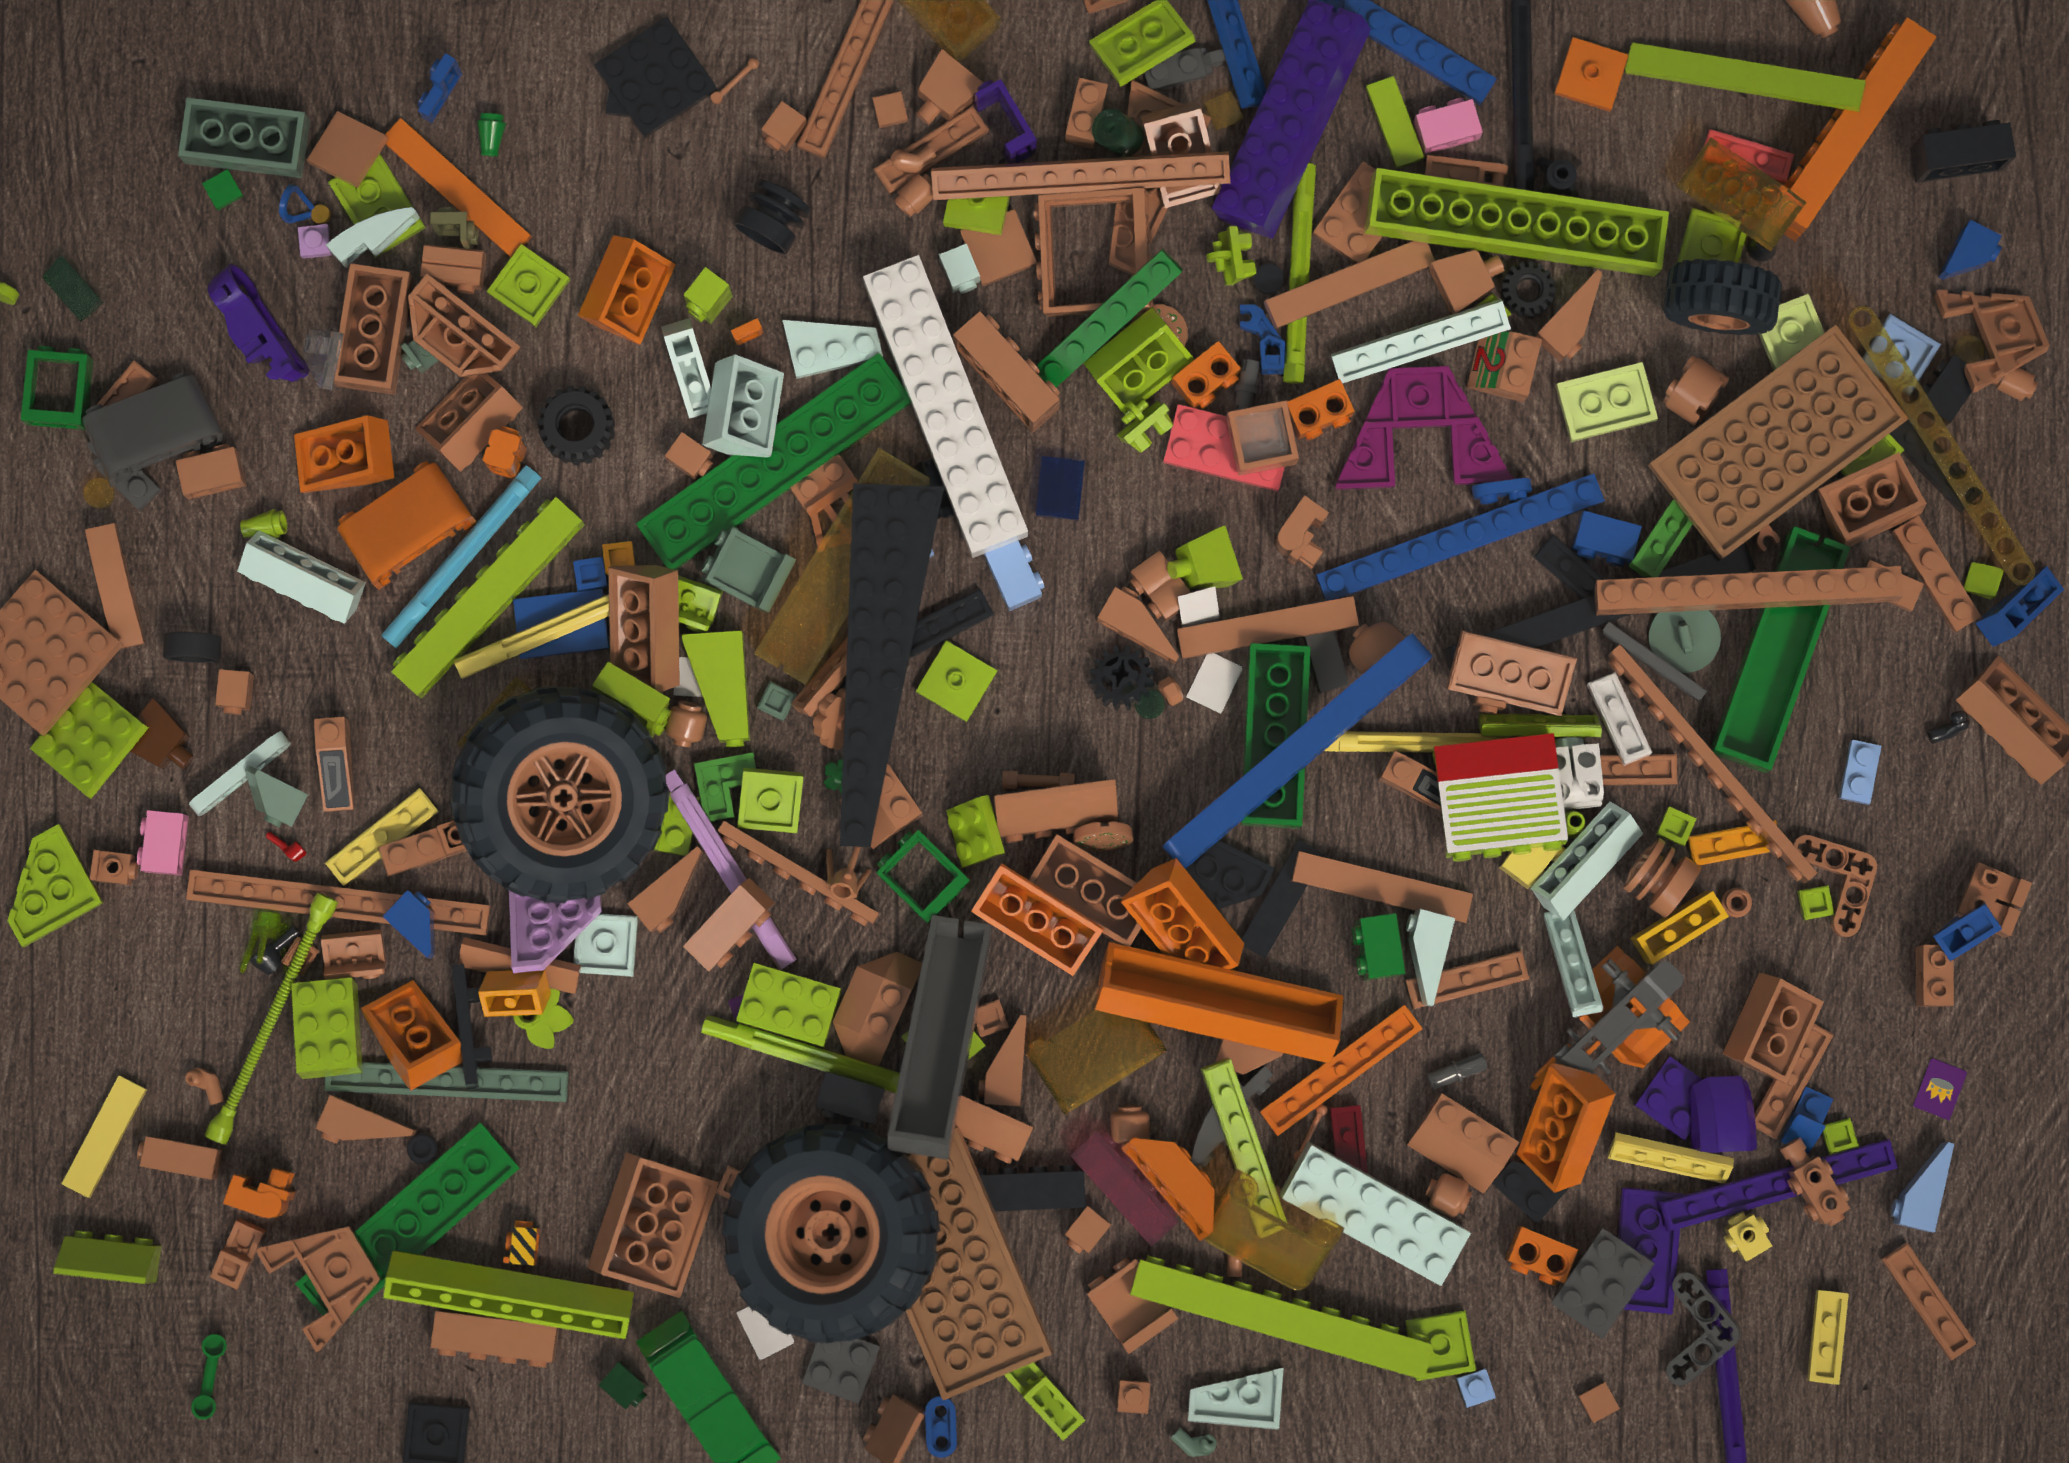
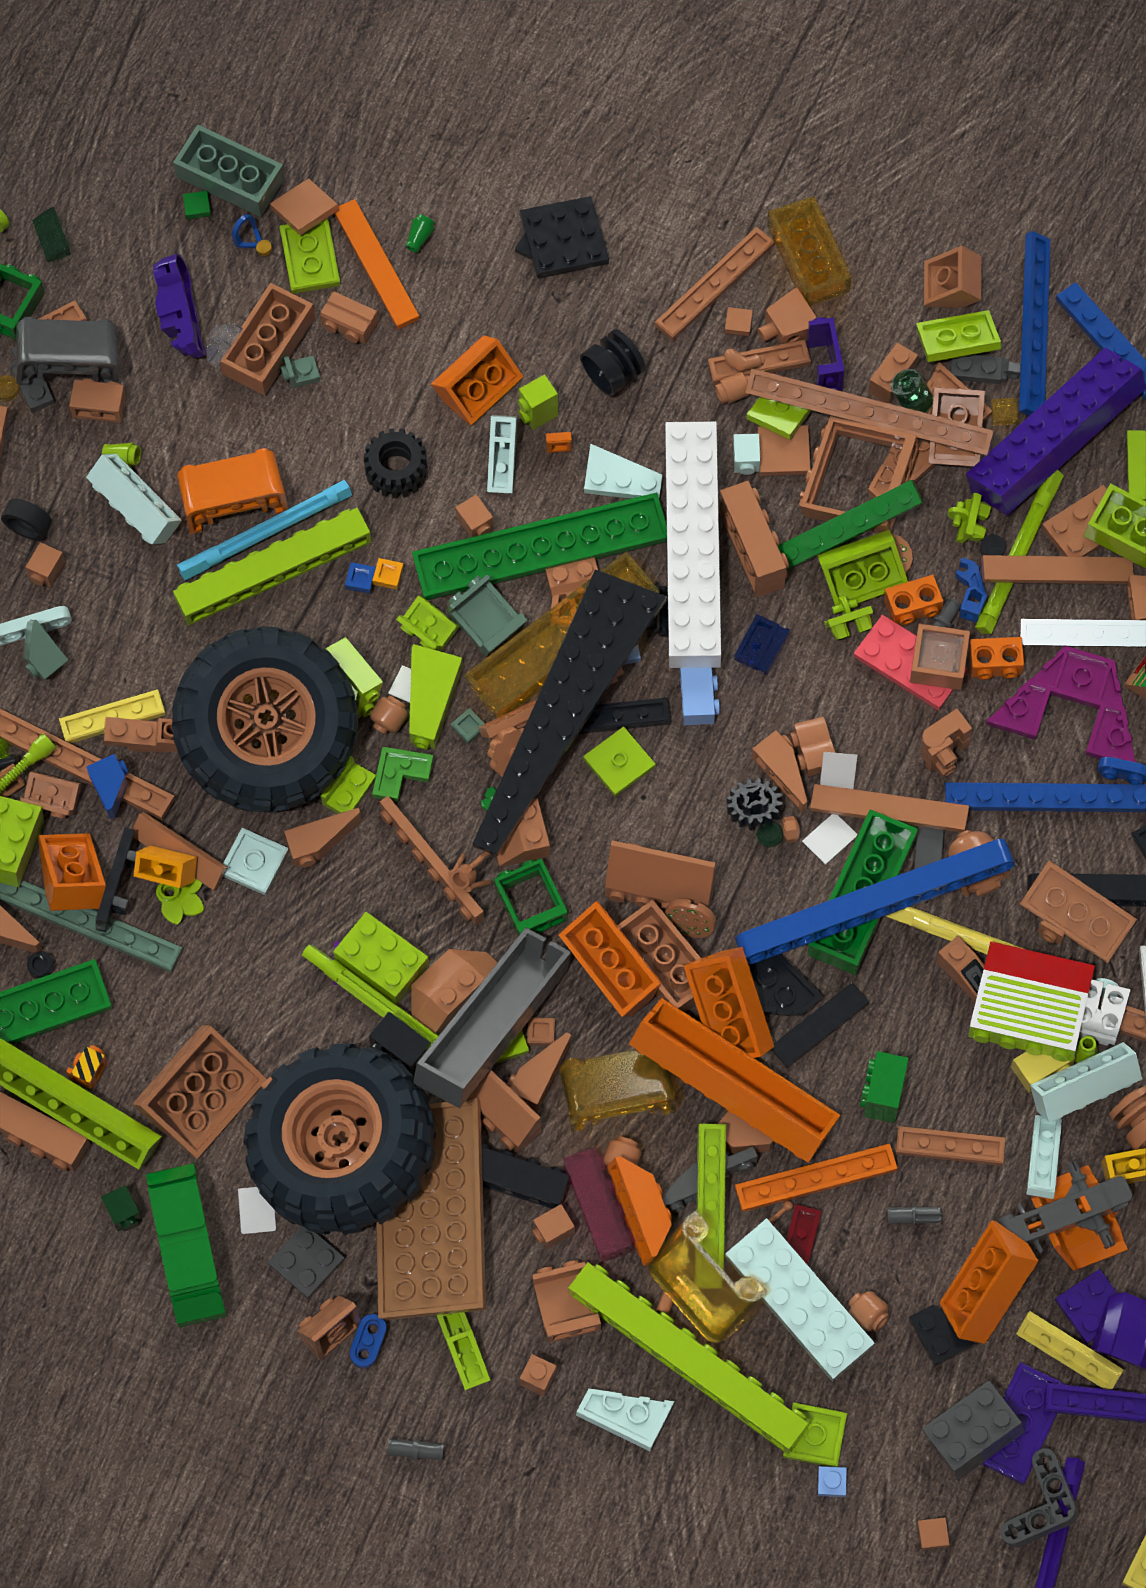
camera: 30 degrees right, 15 degrees down
(294, 851) = (39, 702): red hand -> none
(314, 240) = (250, 265): lavender plate -> none
(334, 763) = (99, 645): slope -> none
(344, 454) = (207, 423): orange slope -> none
(372, 234) = (297, 270): light aqua slope -> none
(444, 77) = (400, 182): blue plate -> none
(455, 224) = (362, 285): olive bracket -> none
(456, 332) = (331, 361): nougat wedge -> none
(465, 418) = (314, 431): nougat slope -> none
(504, 452) = (330, 461): orange brick -> none
(528, 285) = (402, 351): lime plate -> none
(533, 637) = (319, 604): light yellow piece -> none
(541, 608) = (321, 607): blue tile -> none
(545, 929) = (214, 823): lavender plate -> none
(645, 623) = (388, 622): nougat slope -> none
(717, 97) = (606, 268): nougat hinge -> none
(724, 863) = (376, 837): lavender piece -> none
(730, 925) = (359, 876): nougat brick -> none
(743, 407) = (532, 494): light aqua slope -> none
(770, 800) = (431, 795): lime plate -> none
(783, 128) = (648, 304): nougat brick -> none
(975, 831) = (587, 876): lime plate -> none
(1194, 1446) = (574, 1439): sand green arm -> none
(1206, 562) = (859, 736): lime torso -> none
(1380, 886) = (906, 1044): nougat tile -> none
(1428, 946) = (927, 1099): light aqua slope -> none
(1462, 1143) = (896, 1273): nougat slope -> none
(1539, 724) = (1101, 968): lime tile -> none
(1543, 1249) = (934, 1386): orange brick -> none
(1756, 1241) = (1109, 1448): light yellow brick -> none

